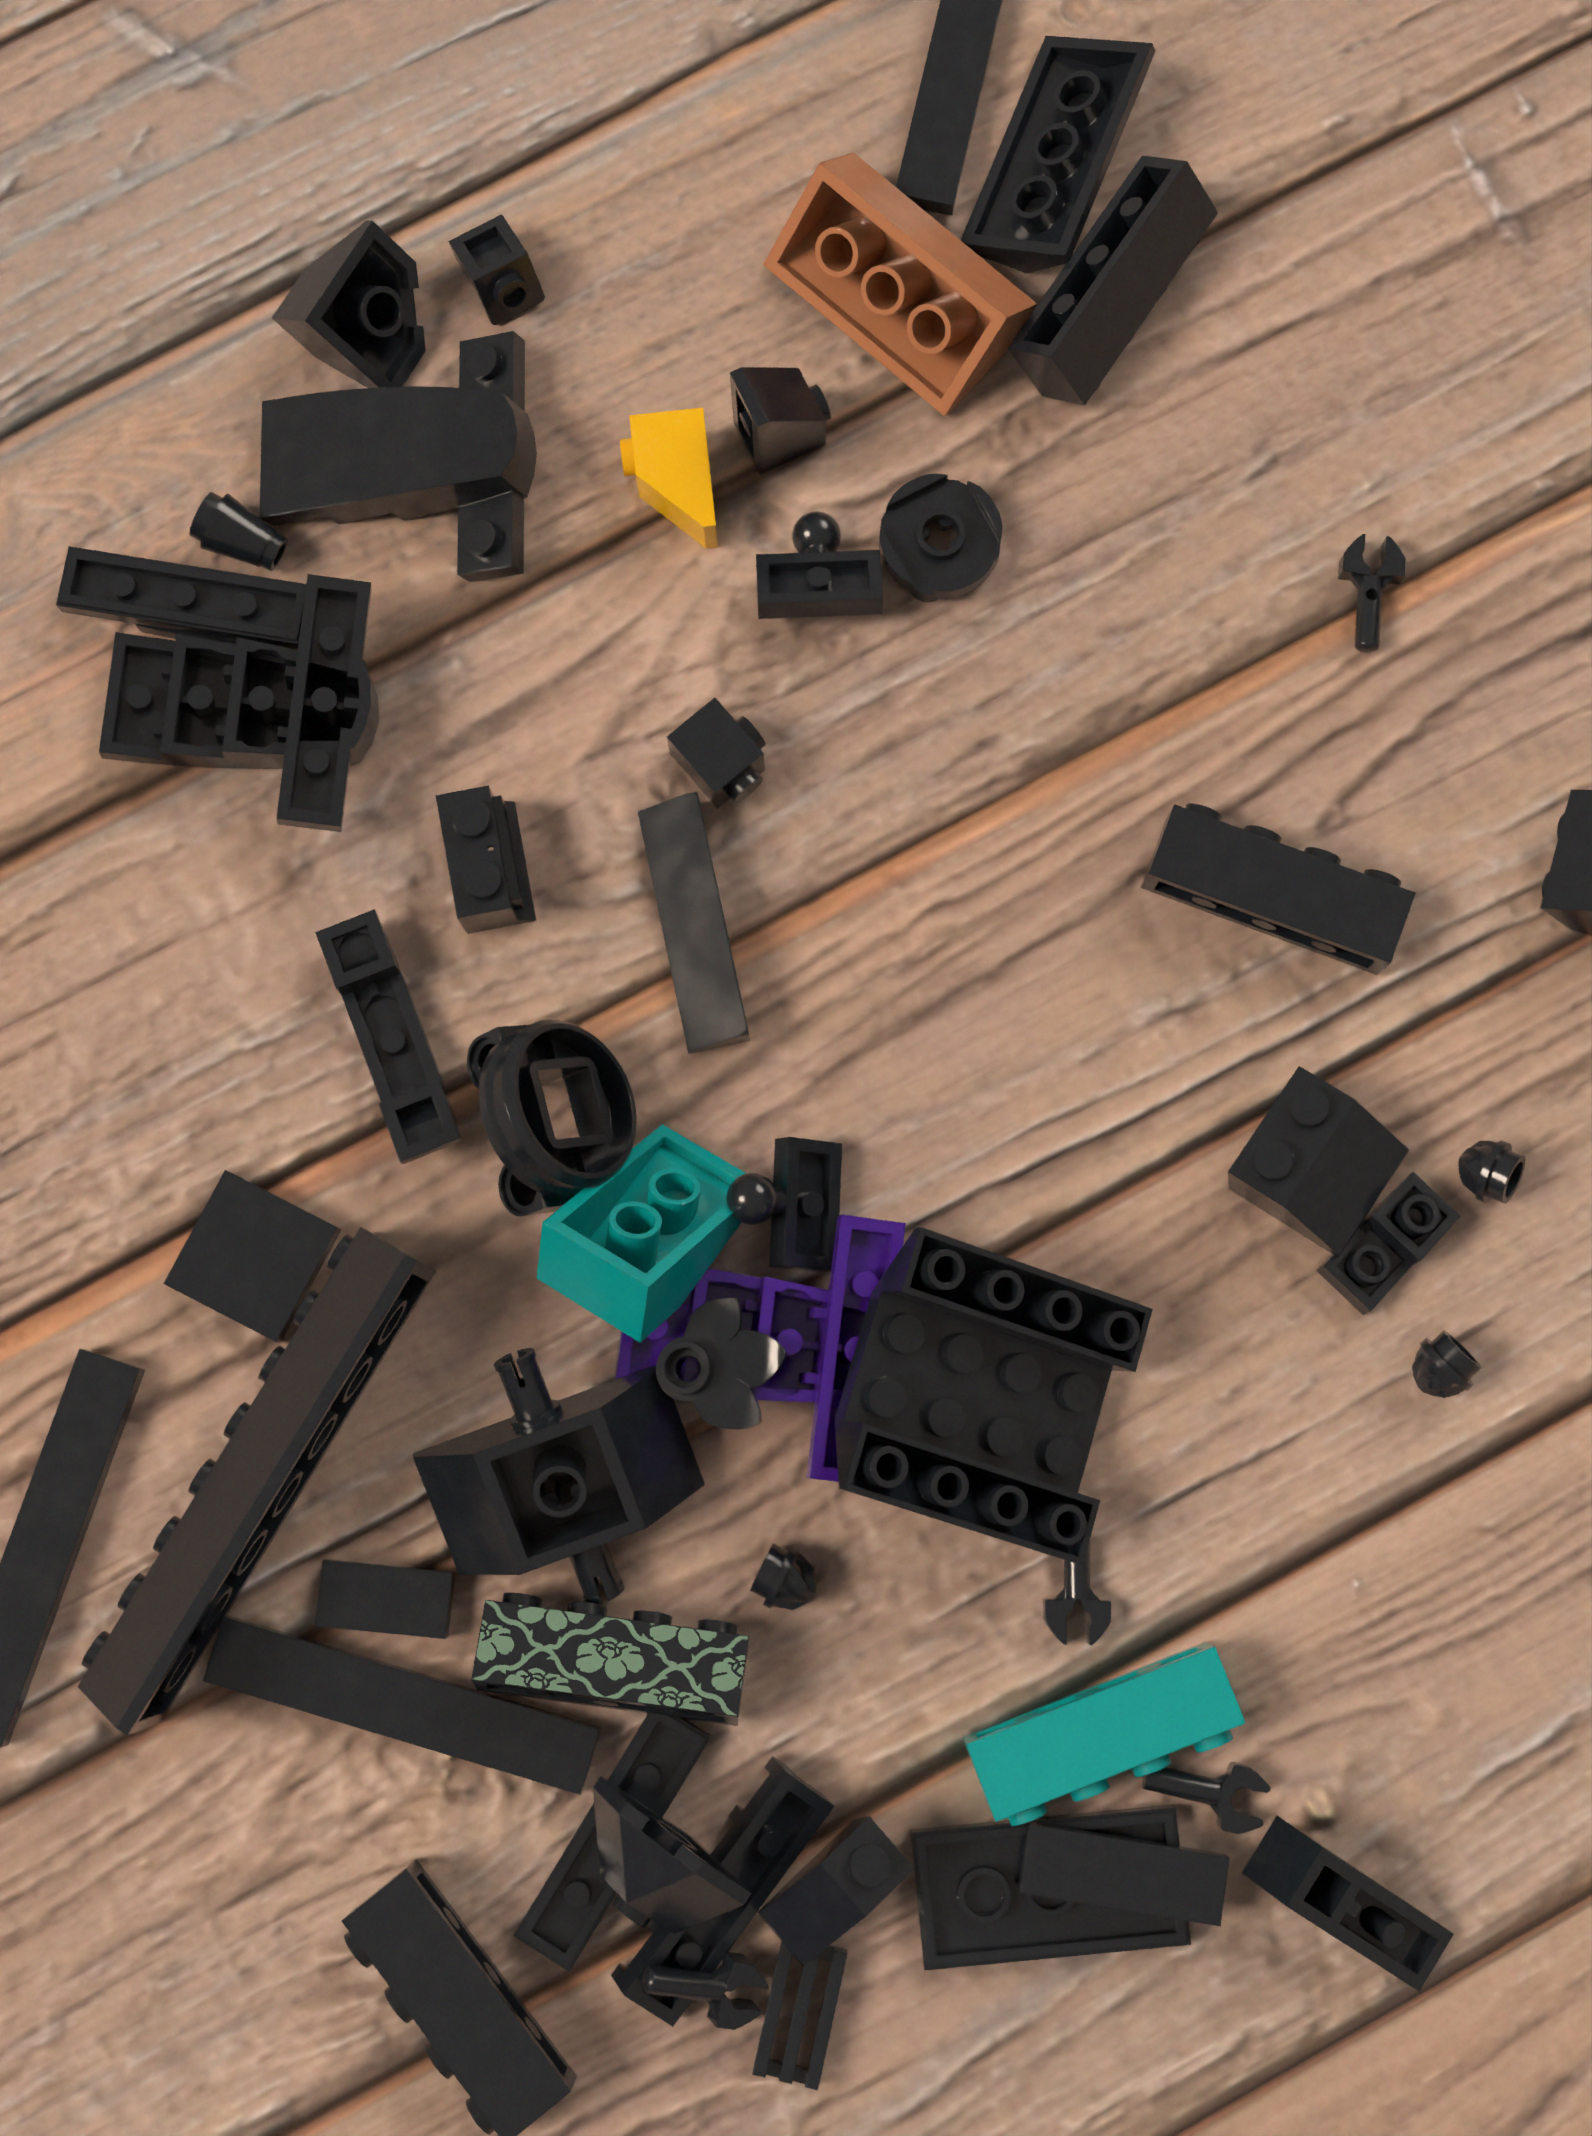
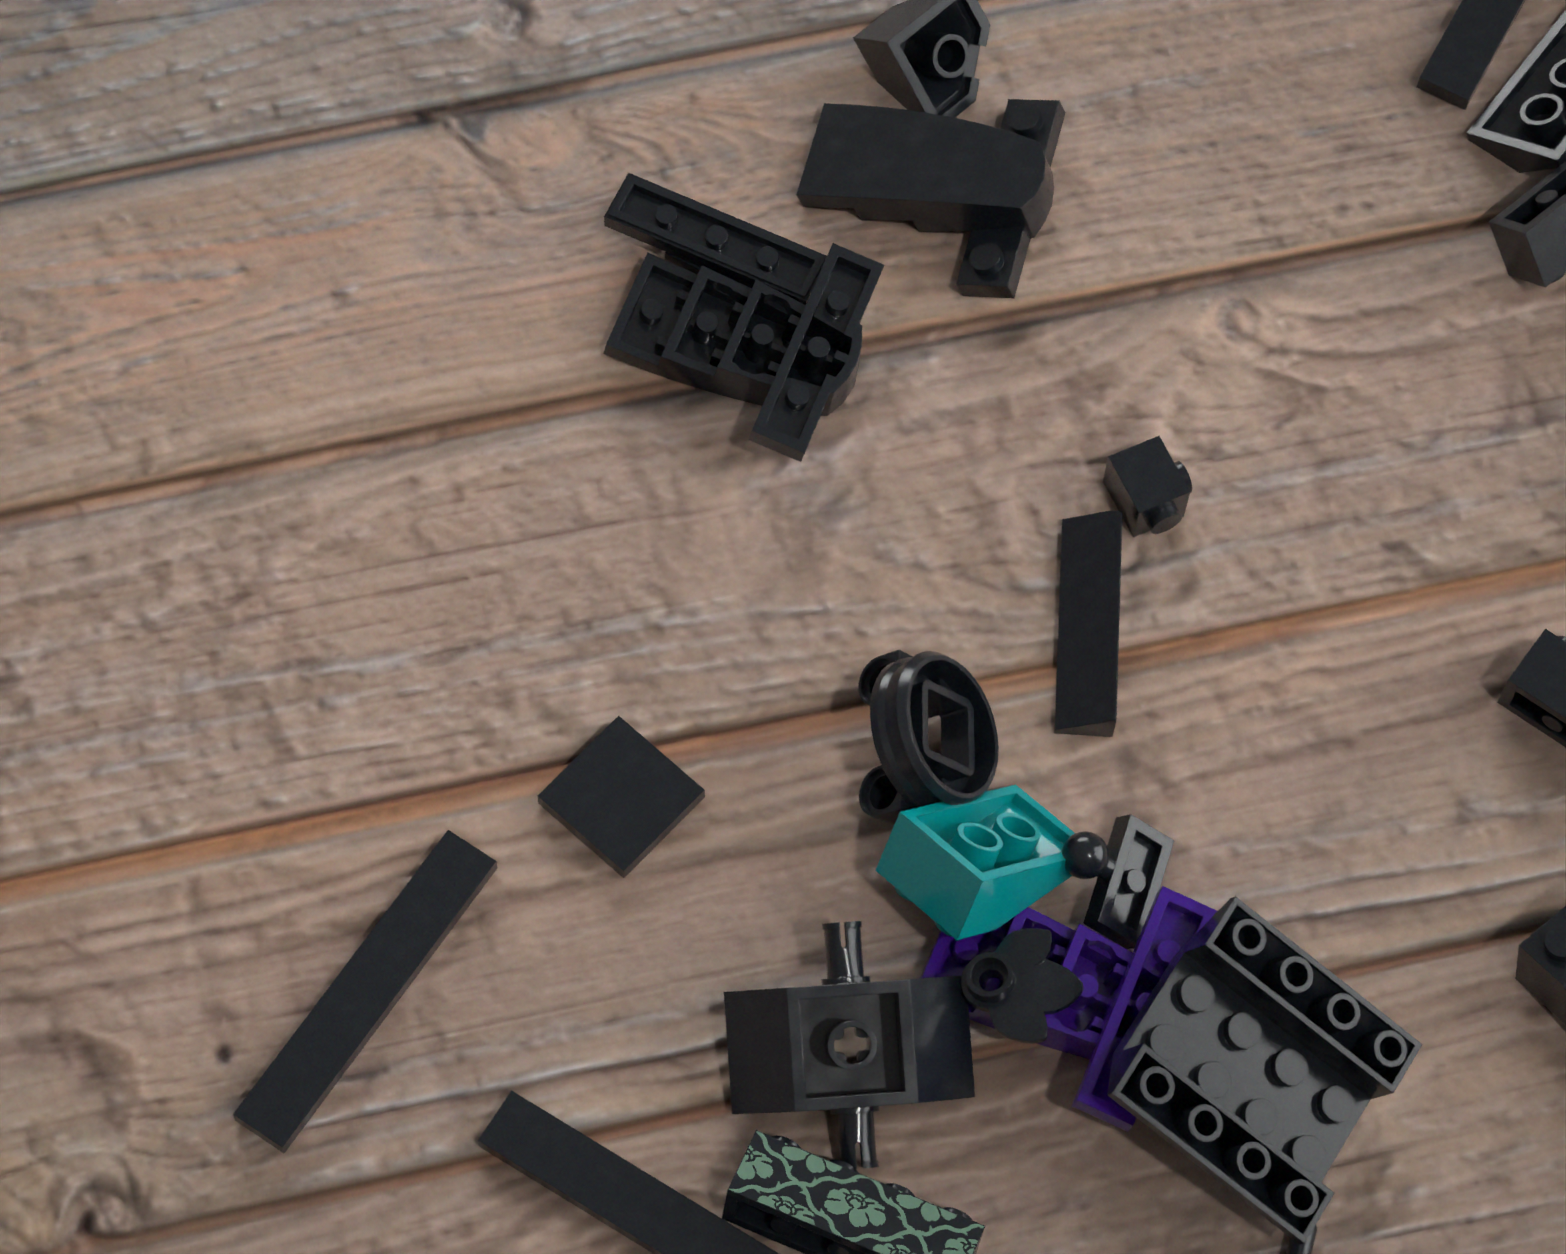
camera: 10 degrees right, 15 degrees down
(236, 532) = (773, 201): black cone -> none
(254, 1481) = (578, 976): black slope -> none
(385, 1598) = (659, 1118): black tile -> none
(390, 1036) = (794, 641): black slope -> none
(492, 885) = (919, 533): black window -> none
(498, 269) = (1058, 51): black bracket -> none
(673, 469) = (1169, 248): yellow slope -> none
(777, 414) = (1271, 225): black slope -> none
(785, 1579) = (1026, 1196): black plate -> none
(818, 577) = (1273, 366): black plate -> none
(897, 281) = (1404, 148): nougat slope -> none
(949, 504) = (1384, 392): black plate -> none

